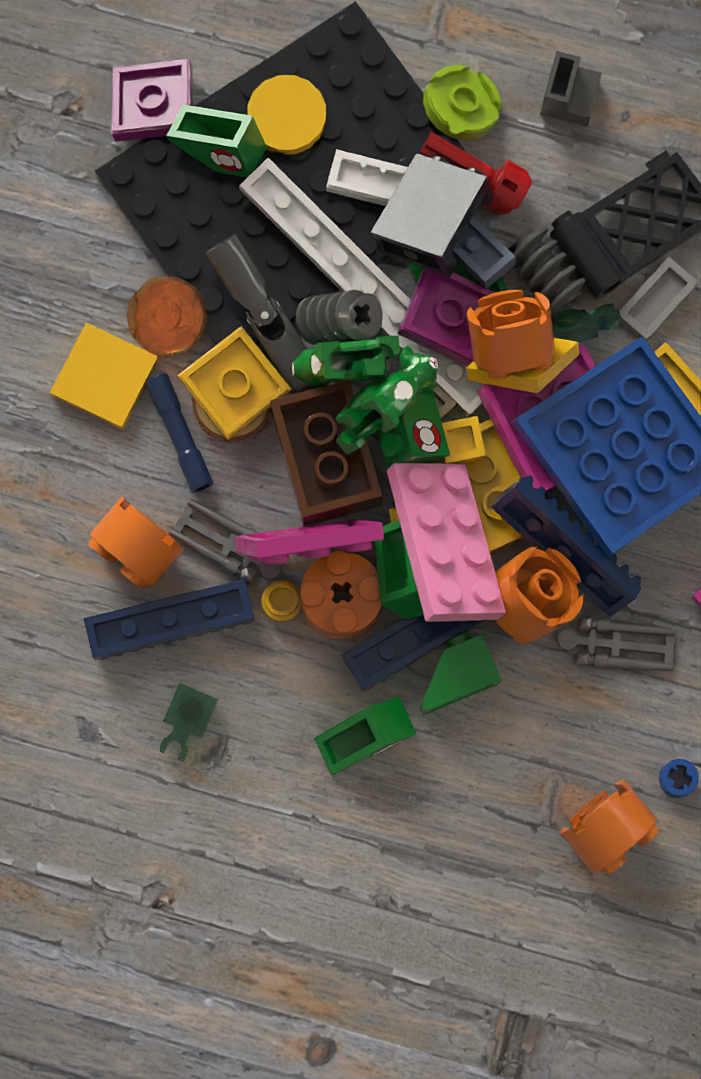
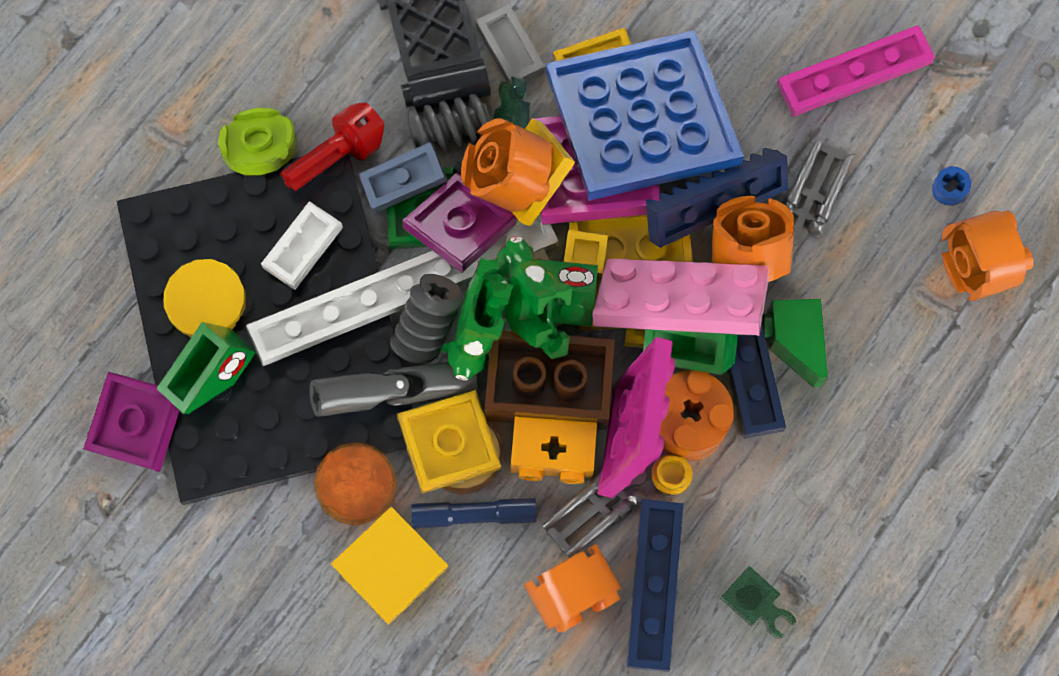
camera: 70 degrees left, 5 degrees down
(265, 458) = (533, 438): none -> light orange brick
(365, 735) = (828, 442): green slope -> none
(430, 213) = (362, 197): panel -> none
(570, 90) = (286, 45): dark grey piece -> none

